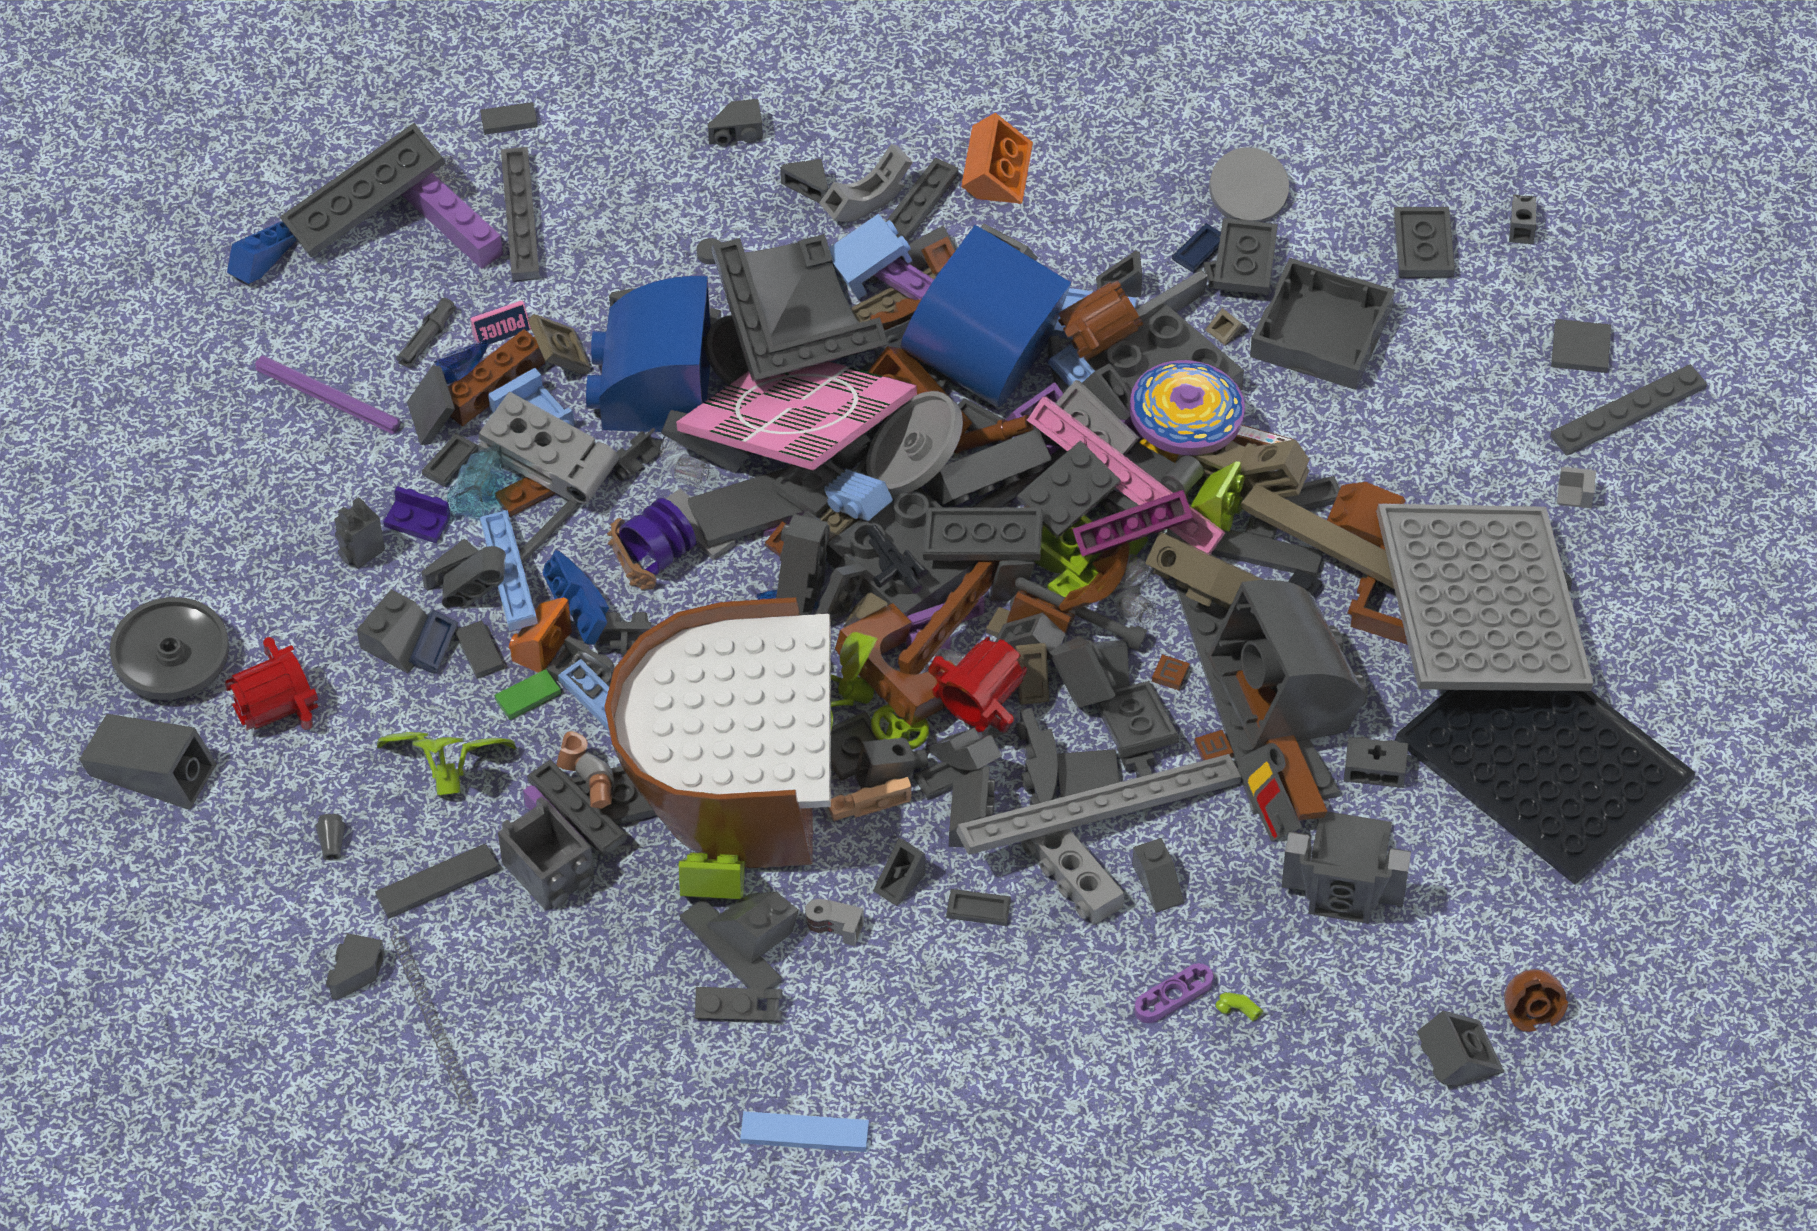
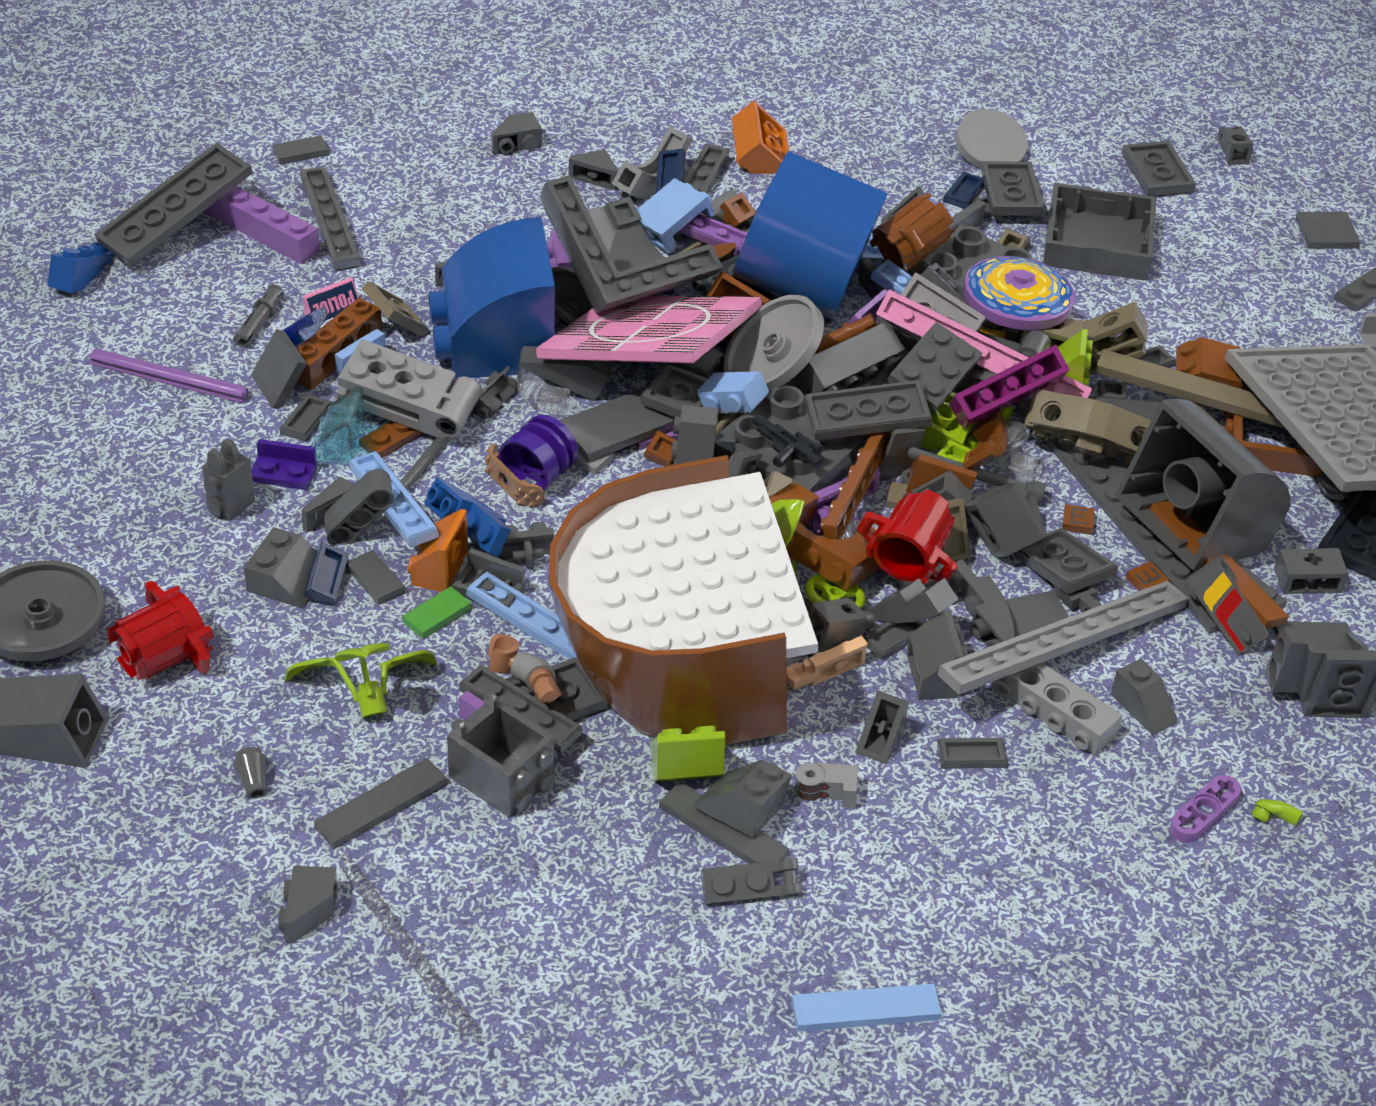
camera: 15 degrees left, 10 degrees down
(882, 196) = (670, 166): none -> dark blue tile

